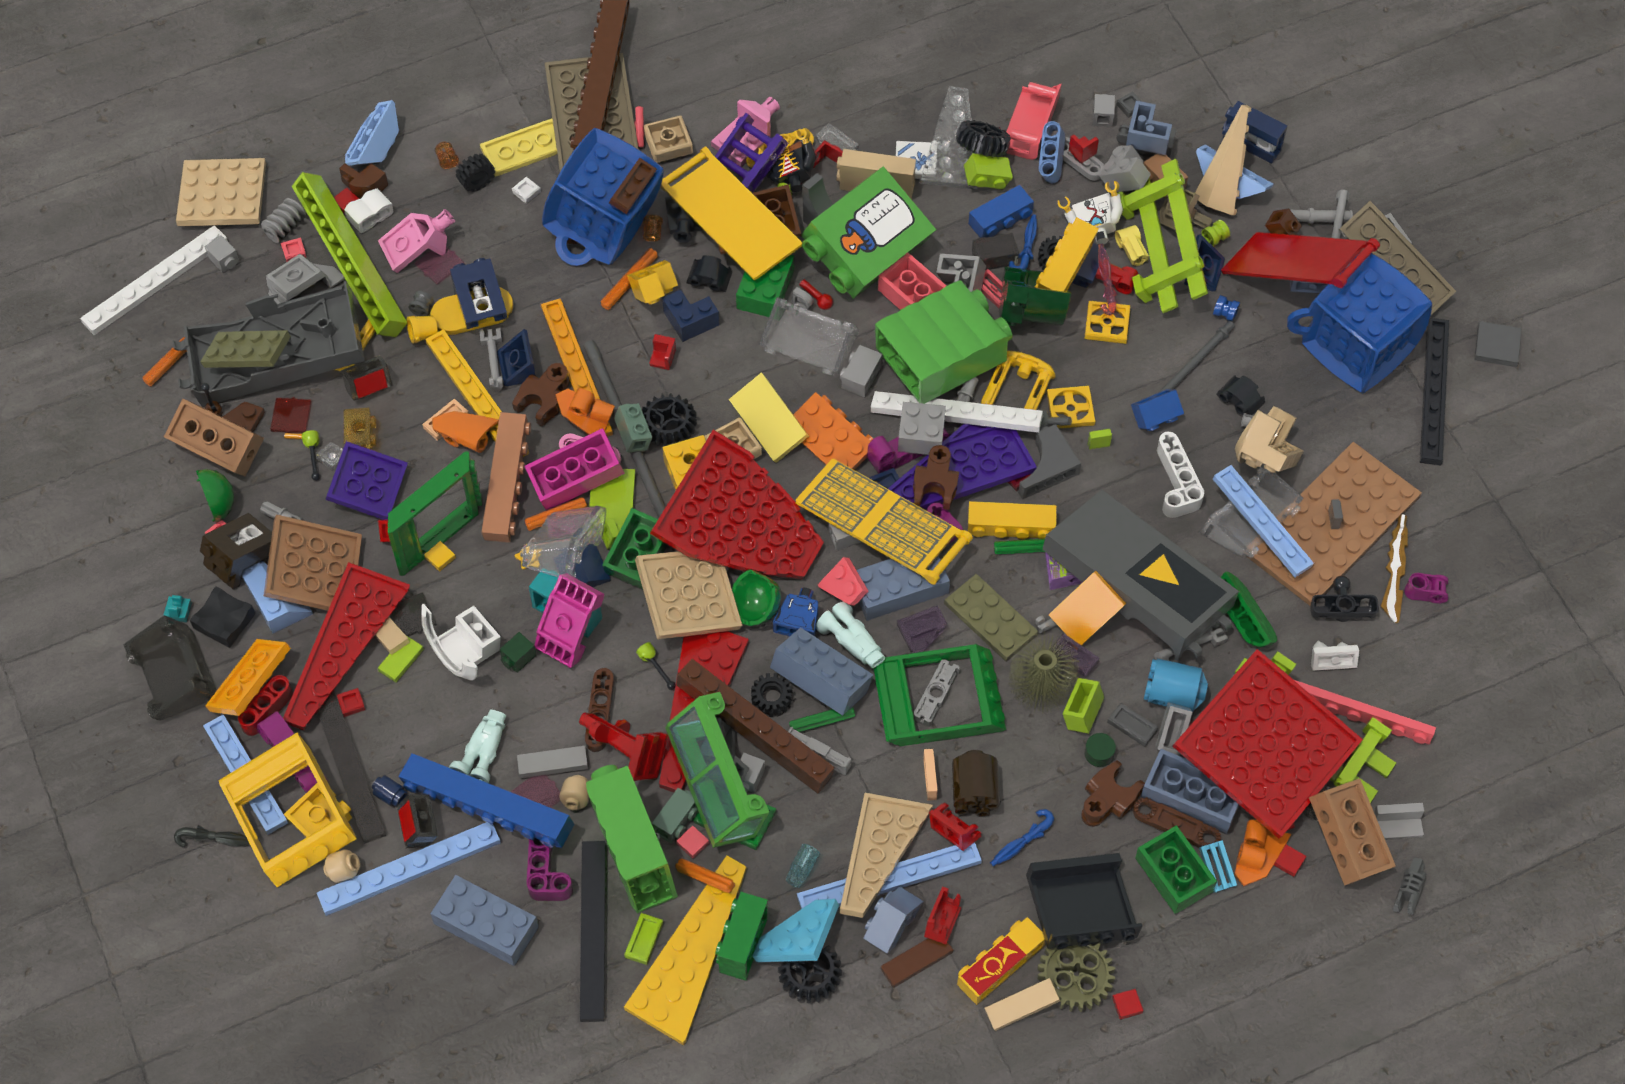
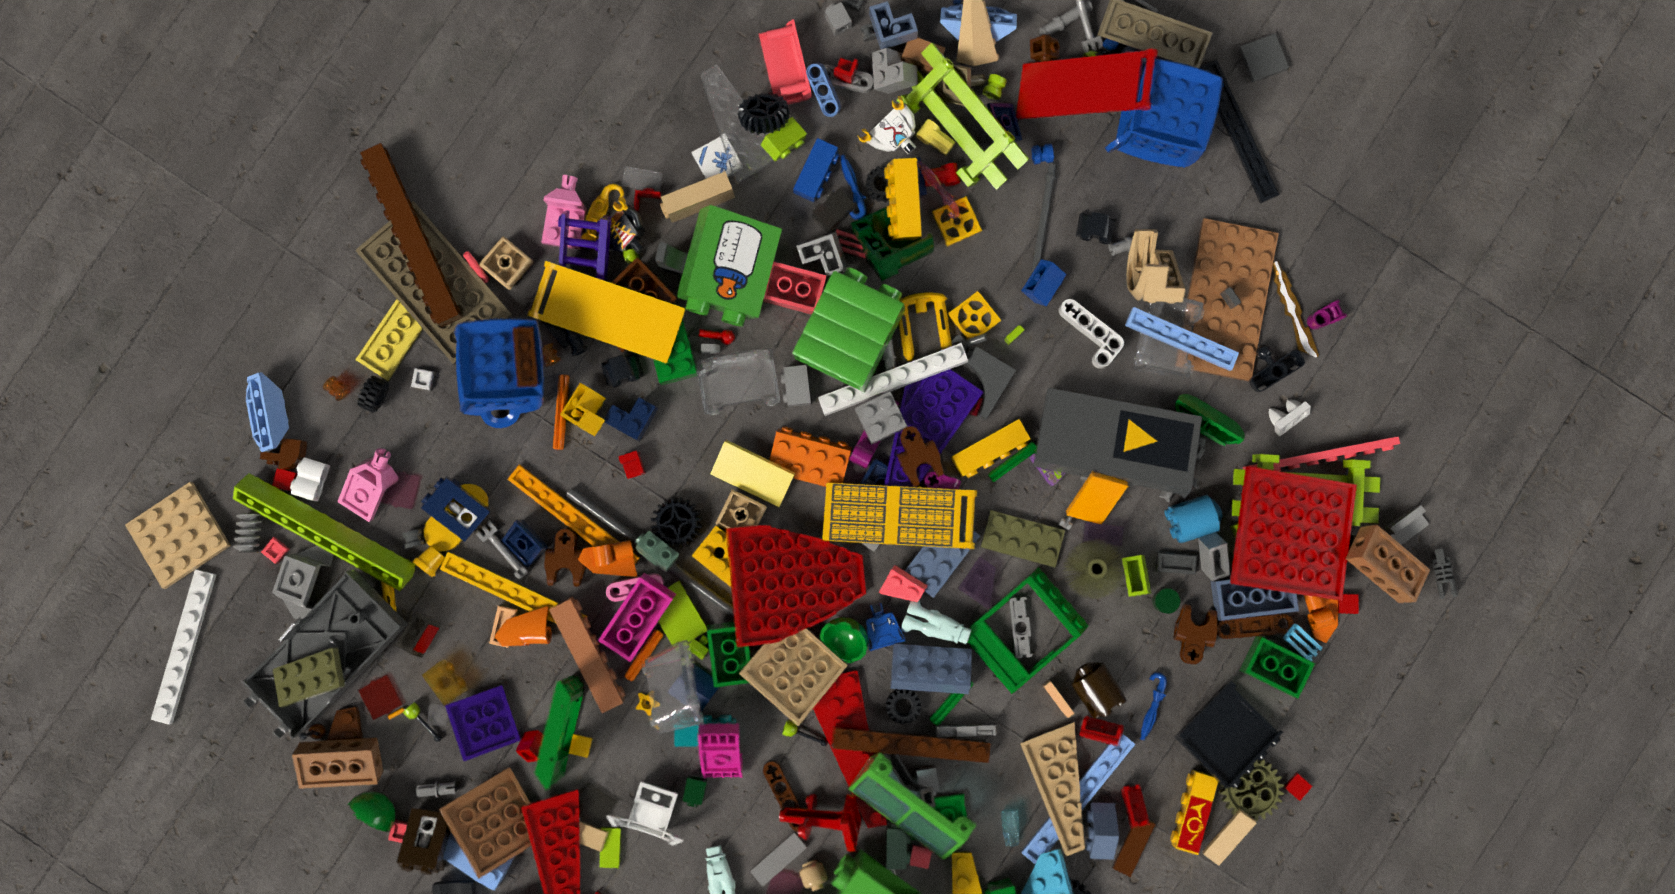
camera: 30 degrees left, 25 degrees up
(162, 365) = (247, 720): orange axle -> none
(222, 254) = (221, 592): light grey brick -> none
(705, 875) = (949, 882): orange axle -> none

